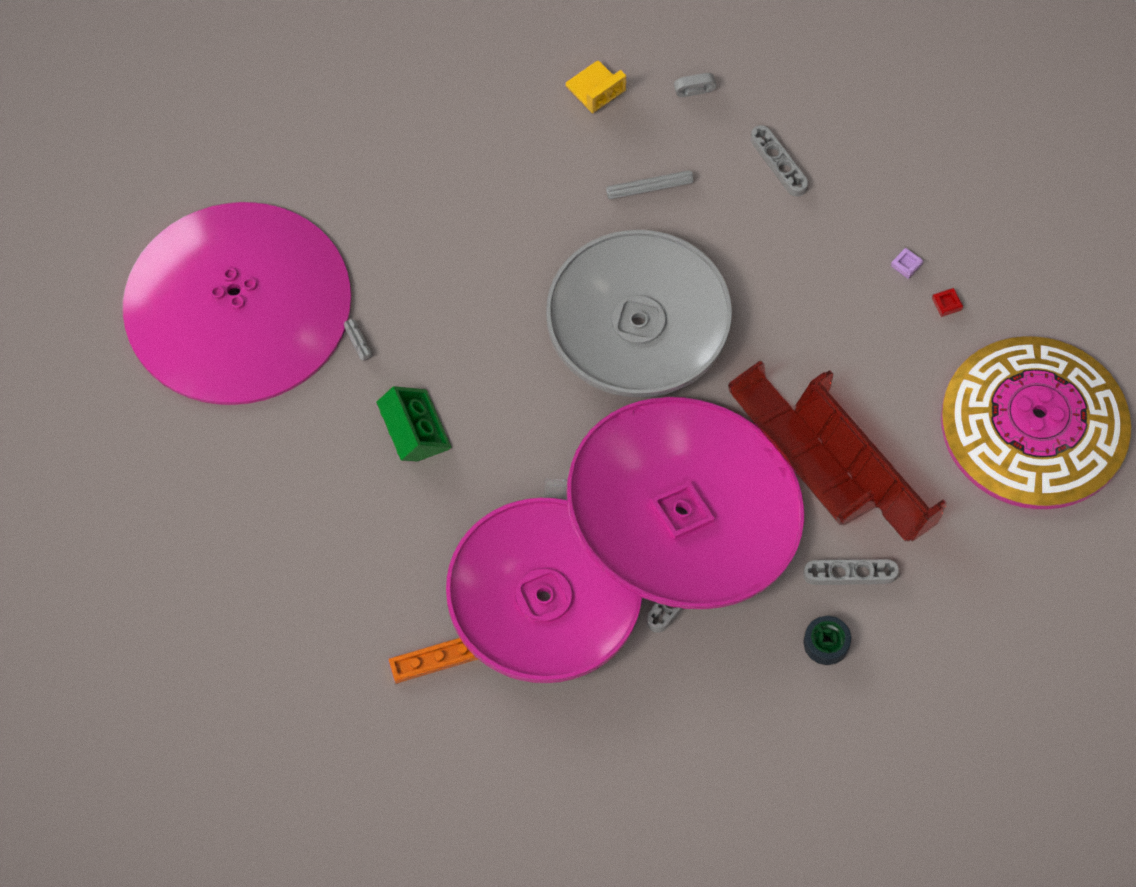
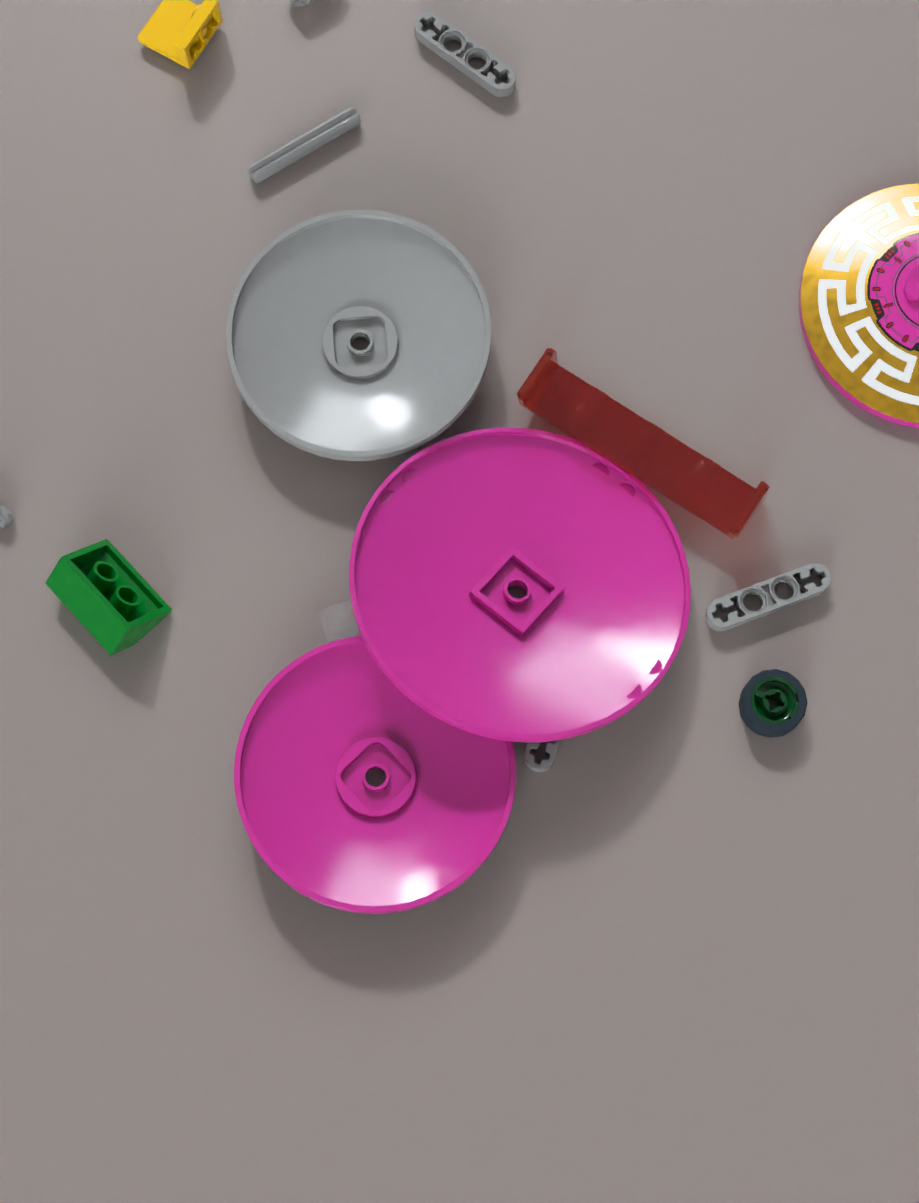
camera: 20 degrees left, 10 degrees up
(430, 660) = (252, 924): orange tile -> none
(865, 462) = (731, 437): clear red piece -> none
(906, 263) = (684, 142): lavender tile -> none
(947, 302) = (756, 178): red tile -> none

